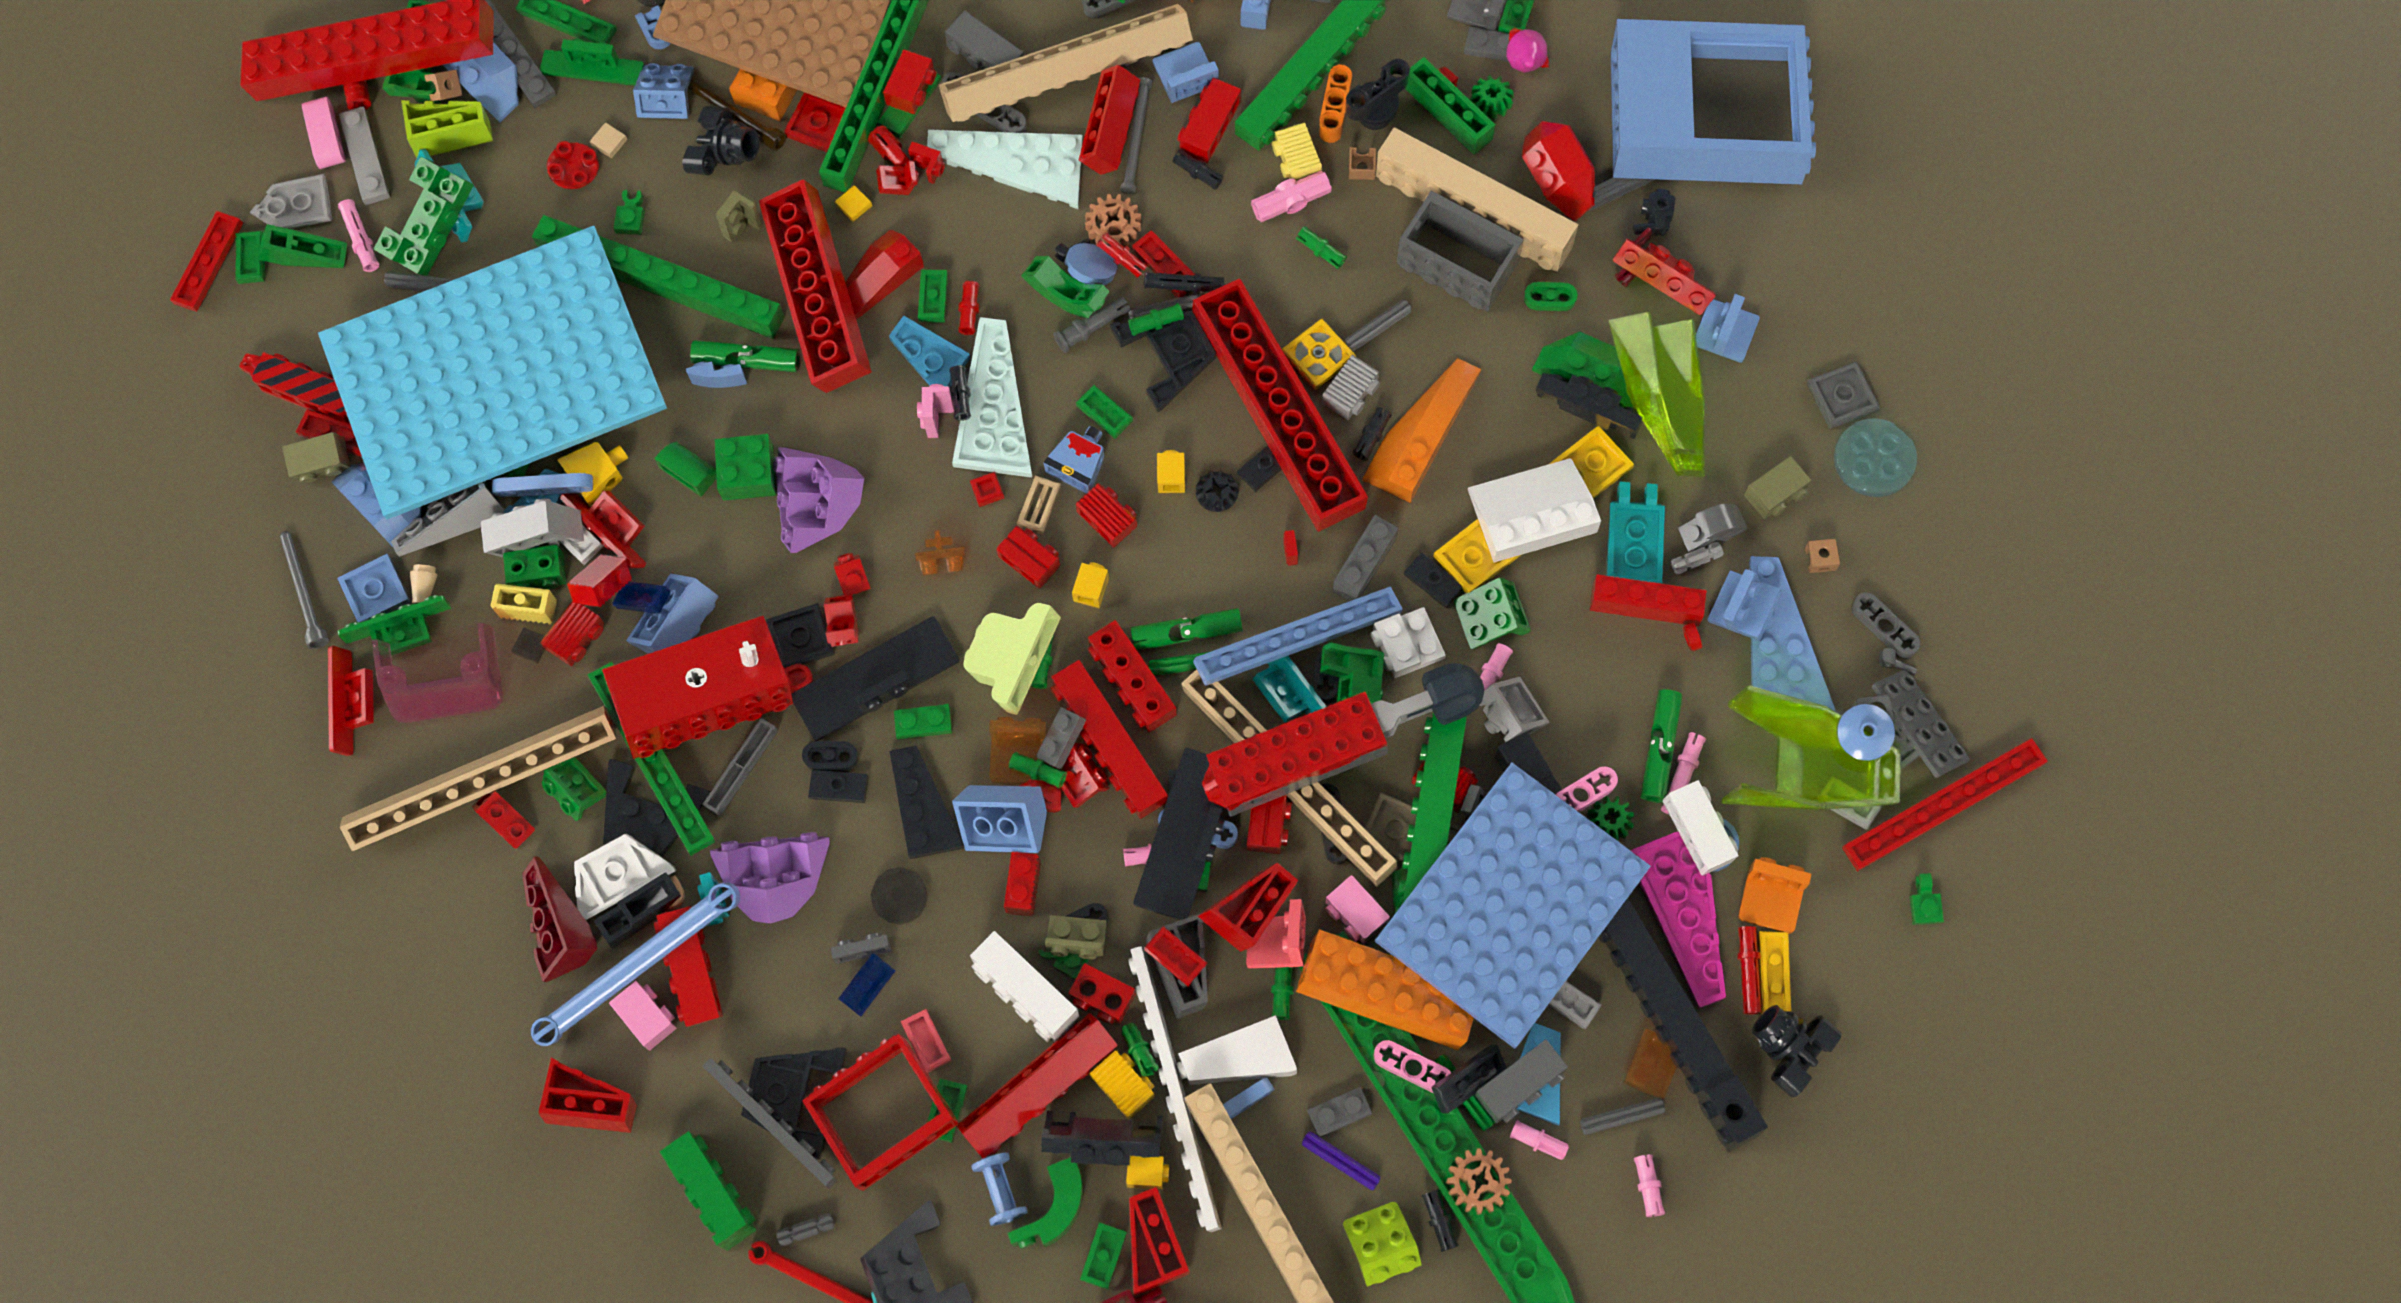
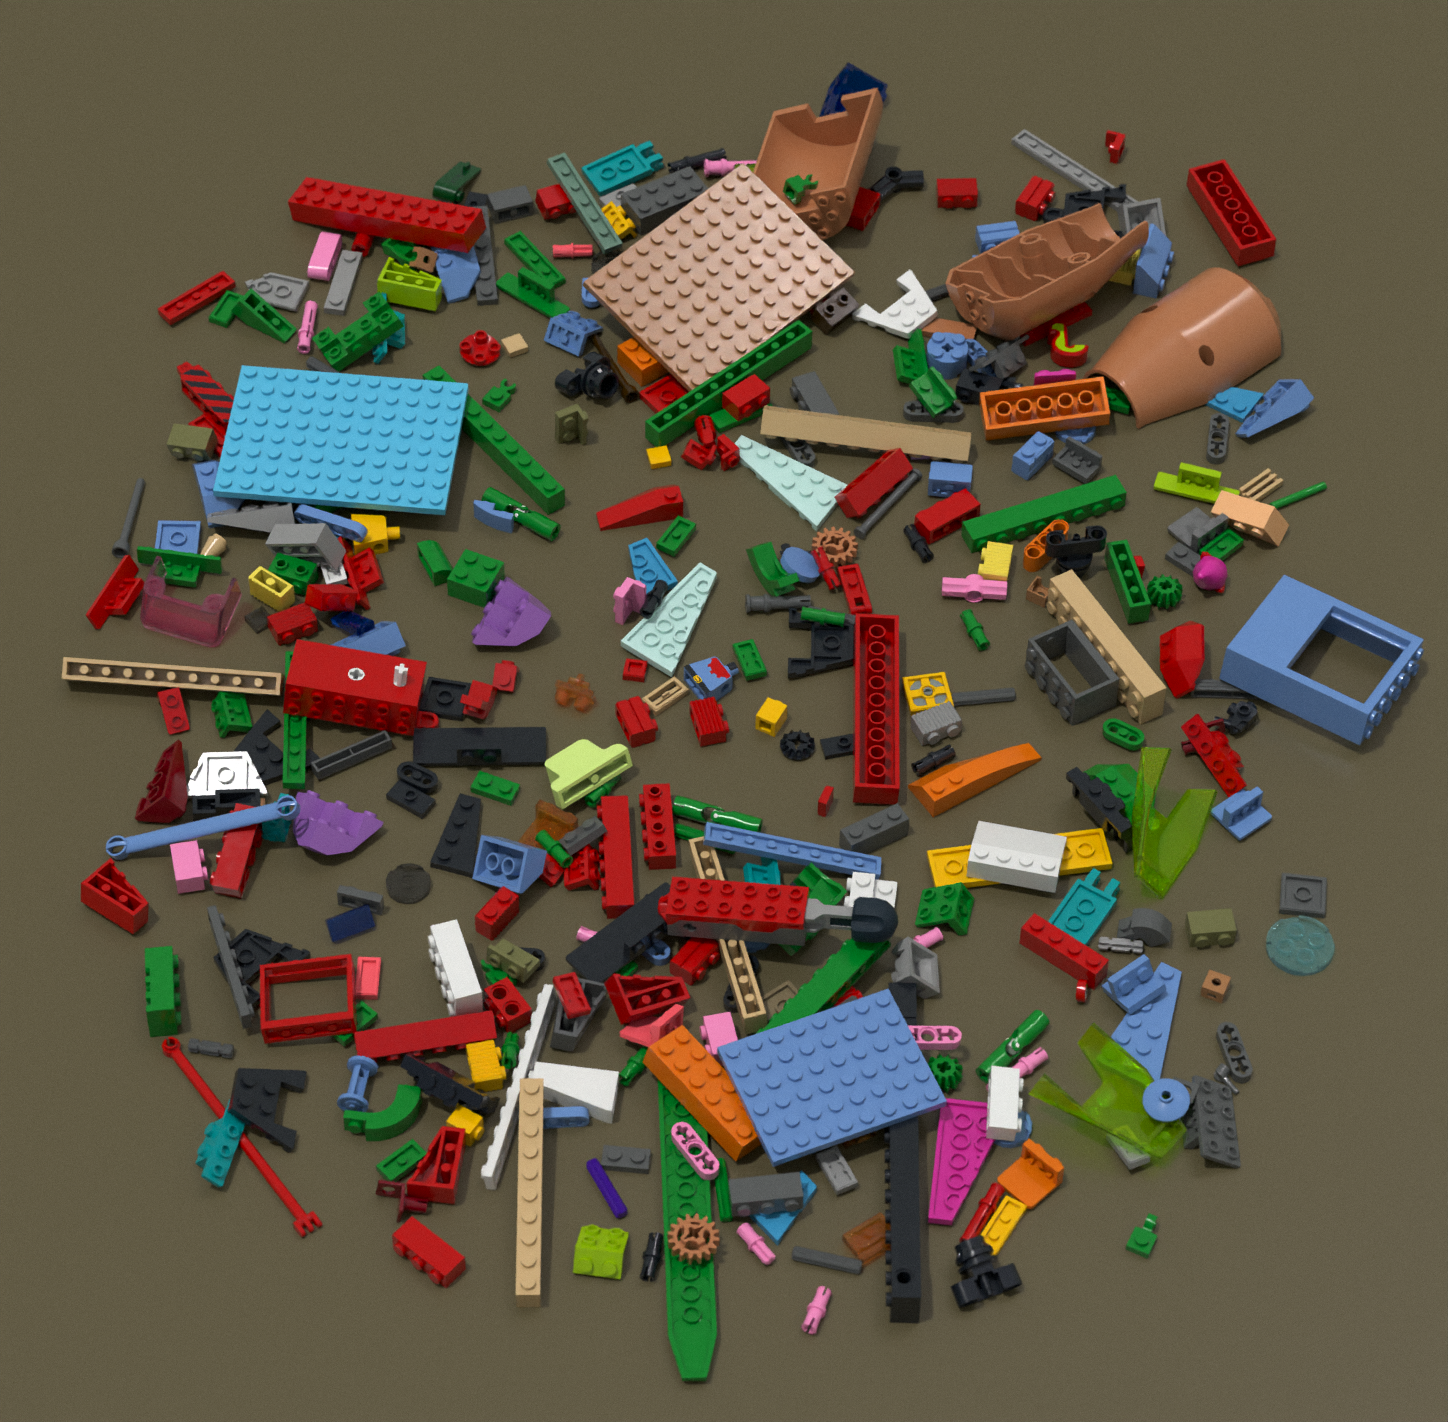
camera: 25 degrees right, 20 degrees down
(814, 286) = (596, 490): red brick -> none
(968, 308) = (696, 554): red pin -> none
(1090, 584) = (667, 758): yellow brick -> none
(1182, 282) = (854, 601): black pin -> none
(1433, 580) = (916, 870): black plate -> none
(1468, 1078) = (717, 1173): black tile -> none
(1944, 804) = (1200, 1182): red plate -> none

